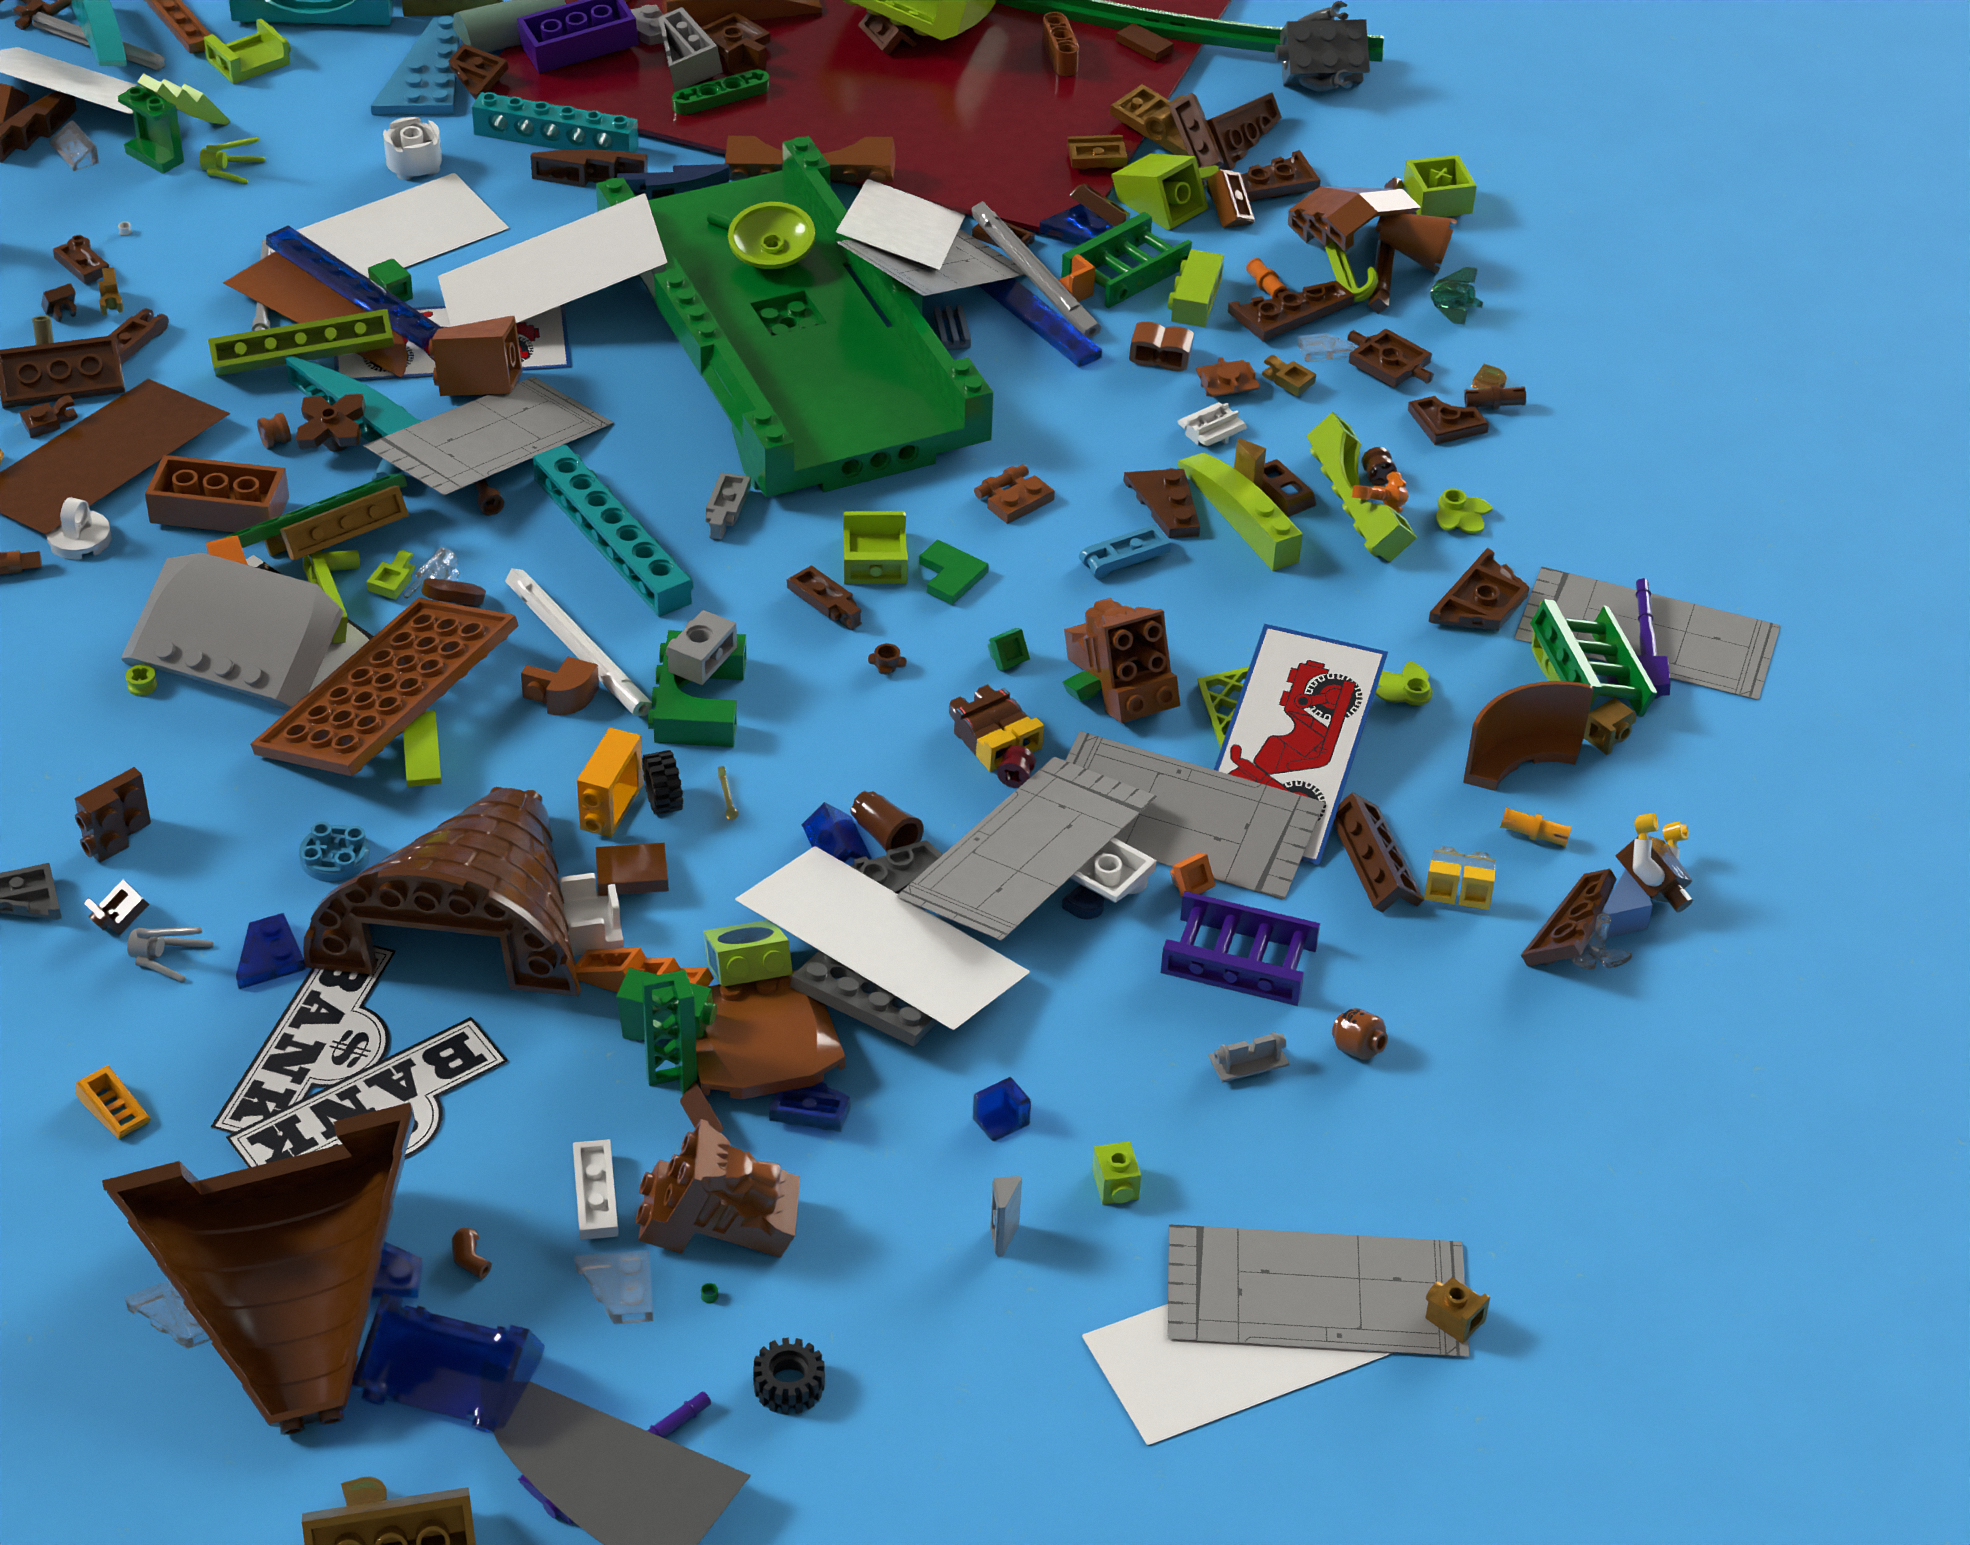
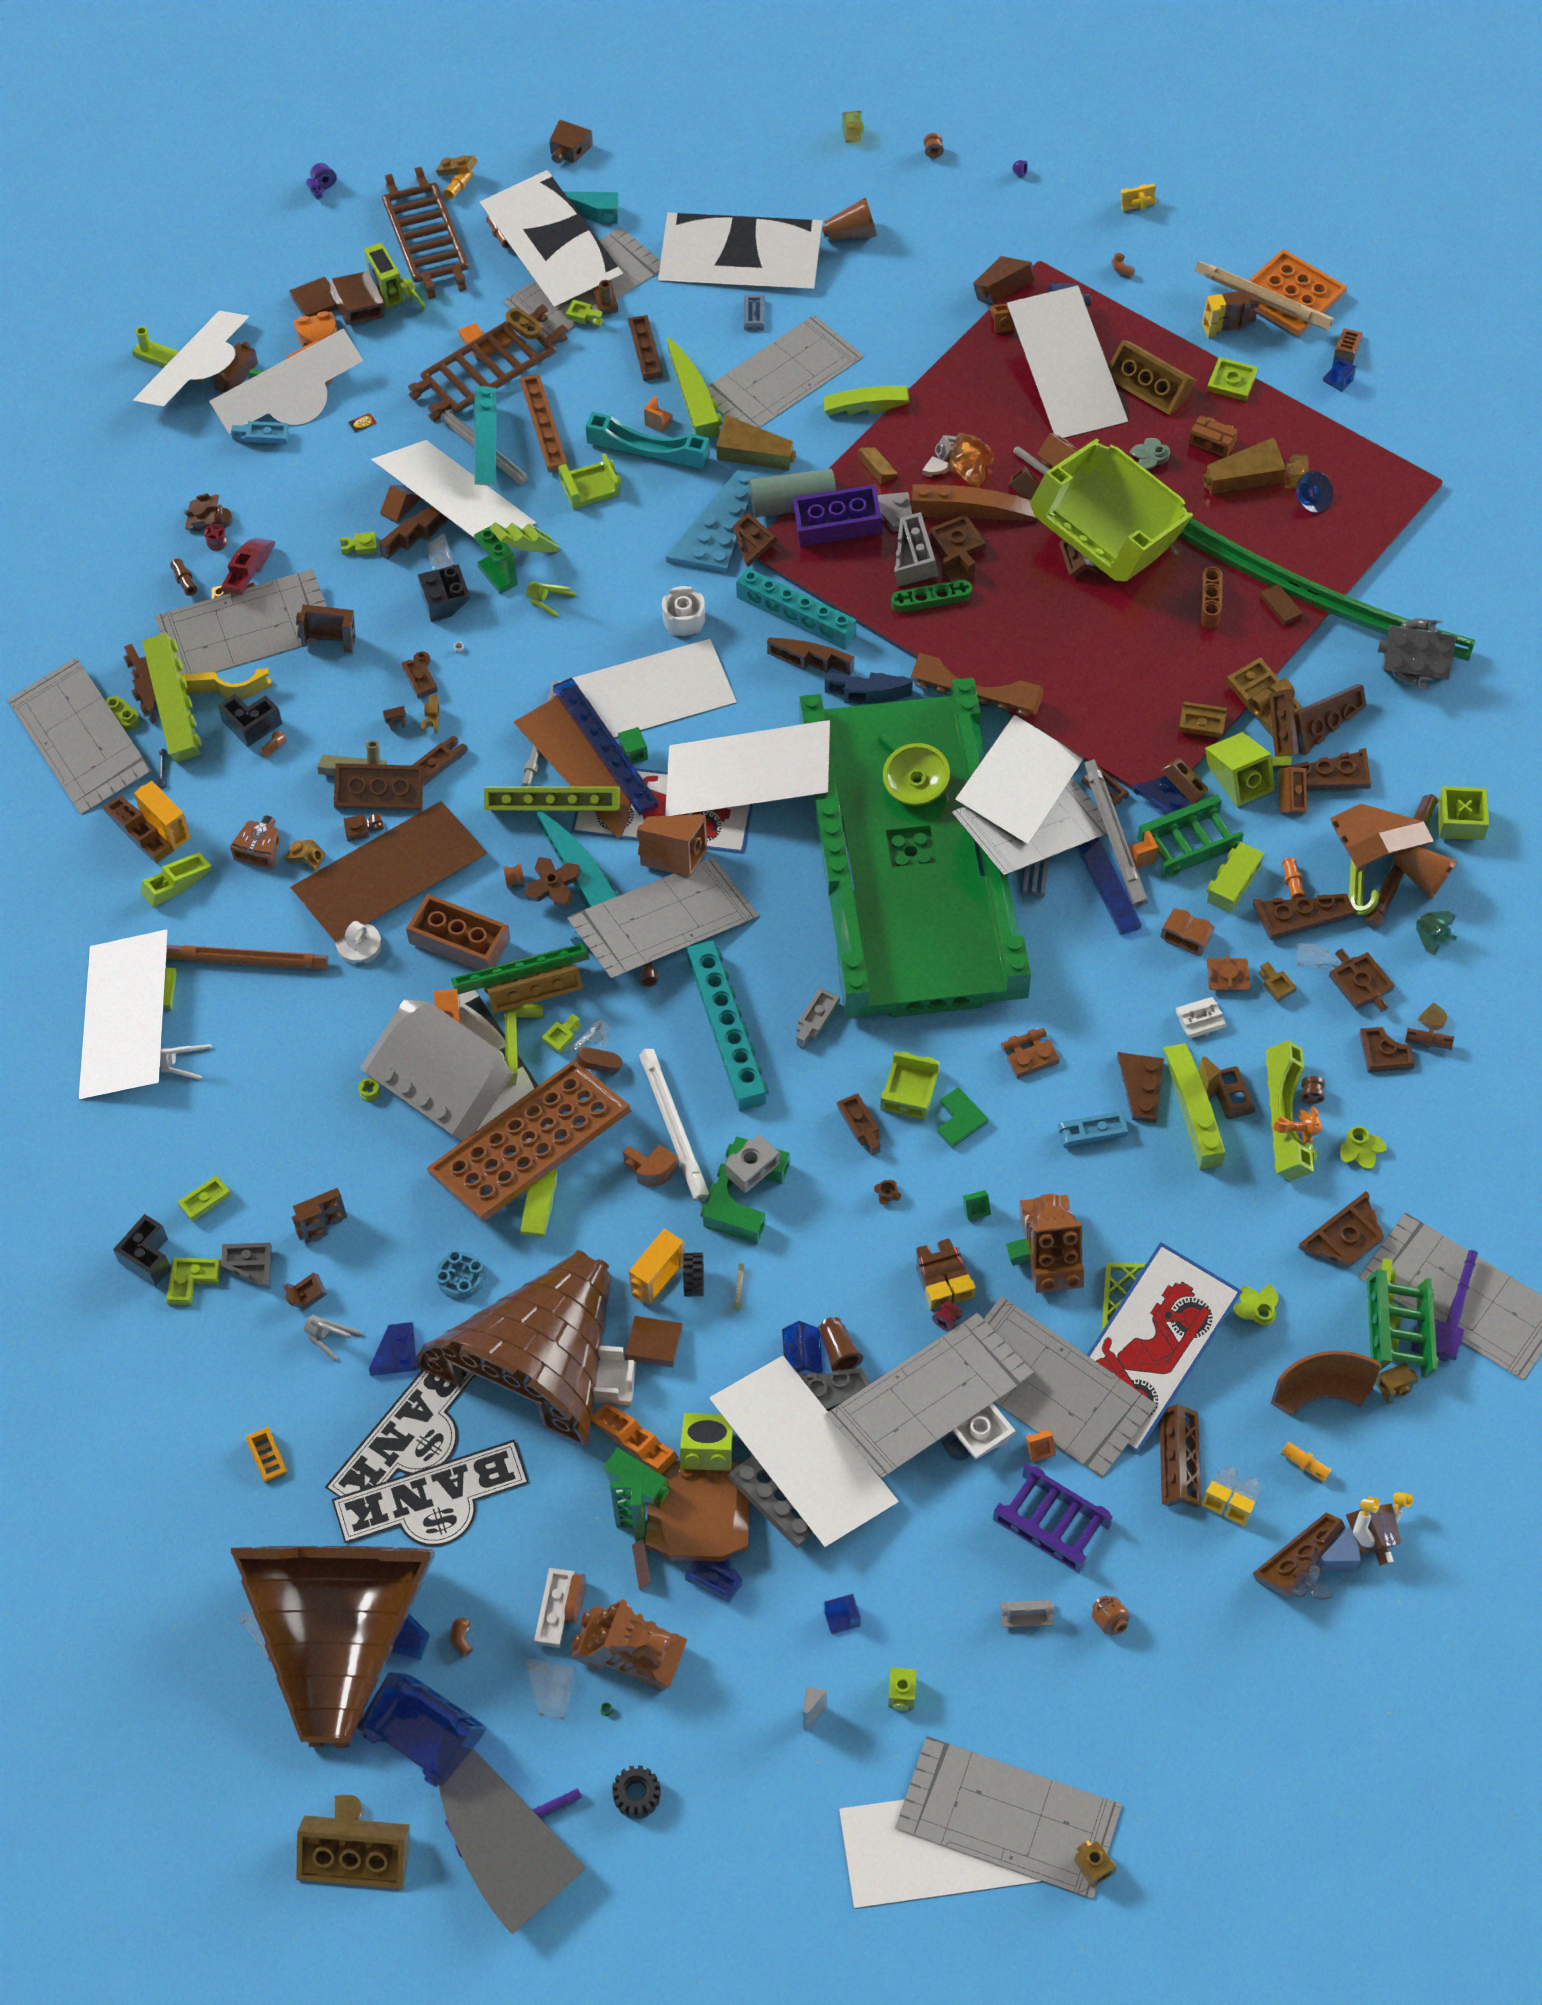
camera: 20 degrees right, 15 degrees up
(87, 174) = (443, 591): none -> black slope
(621, 1171) = (575, 1598): none -> dark orange tile

